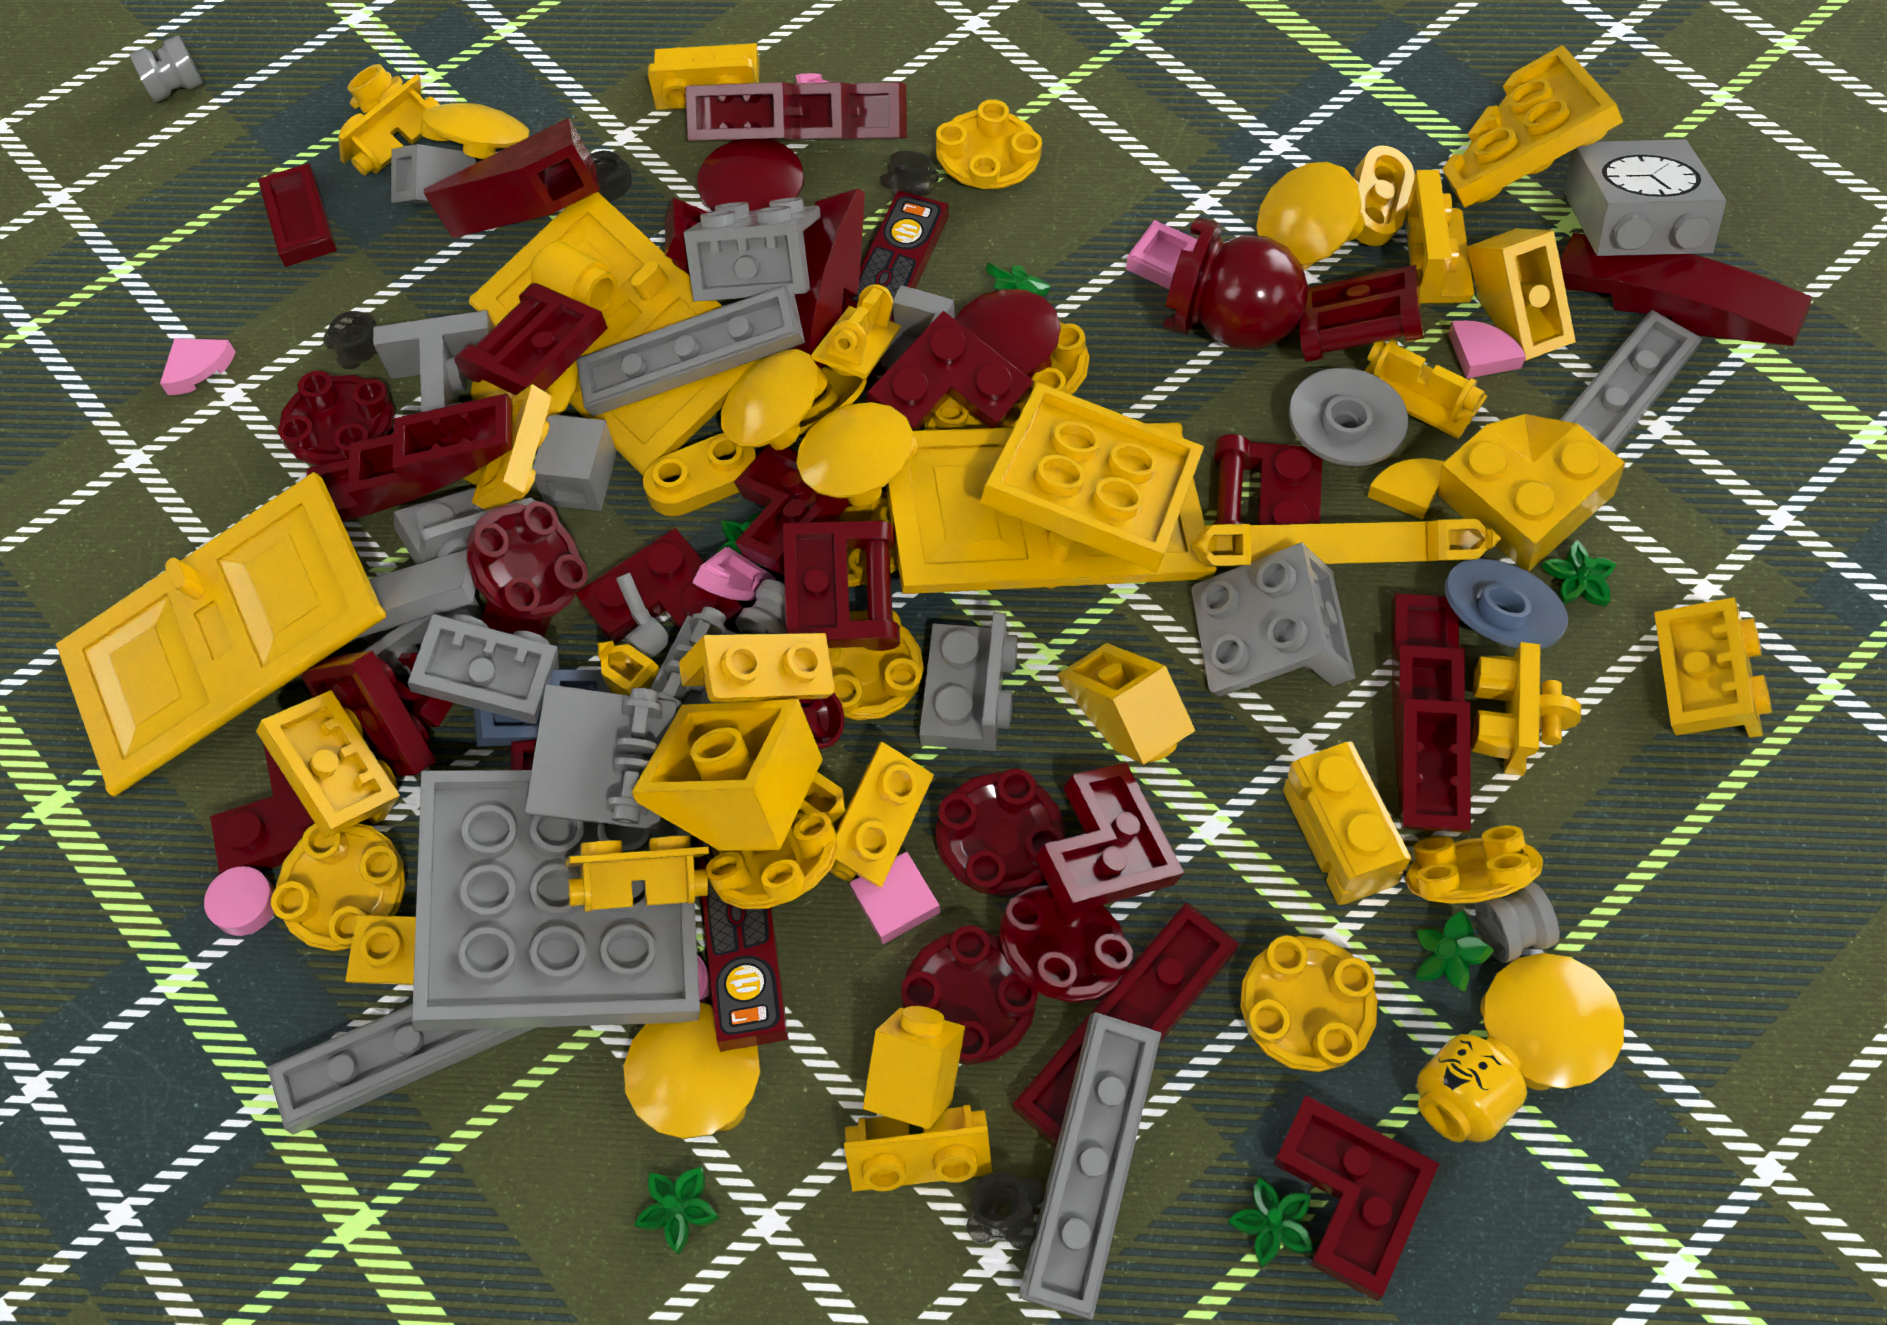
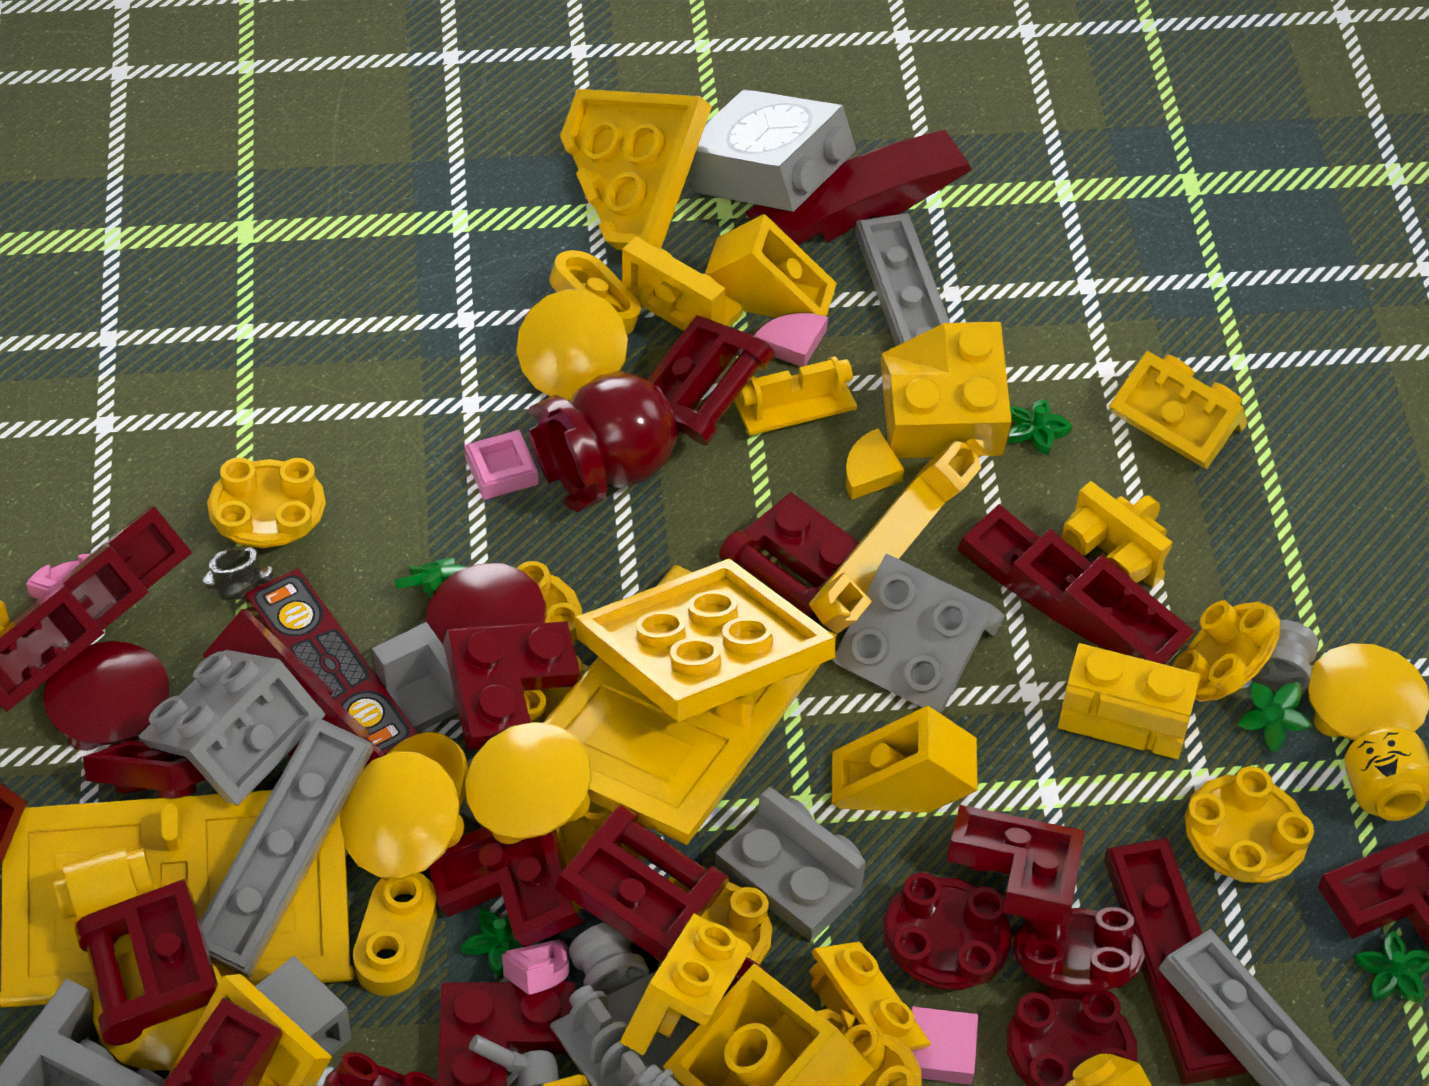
camera: 60 degrees left, 10 degrees down
(860, 335) = (396, 708): yellow hinge -> none
(1348, 416) = (782, 455): light grey dish -> none
(1505, 603) = (1031, 480): sand blue dish -> none

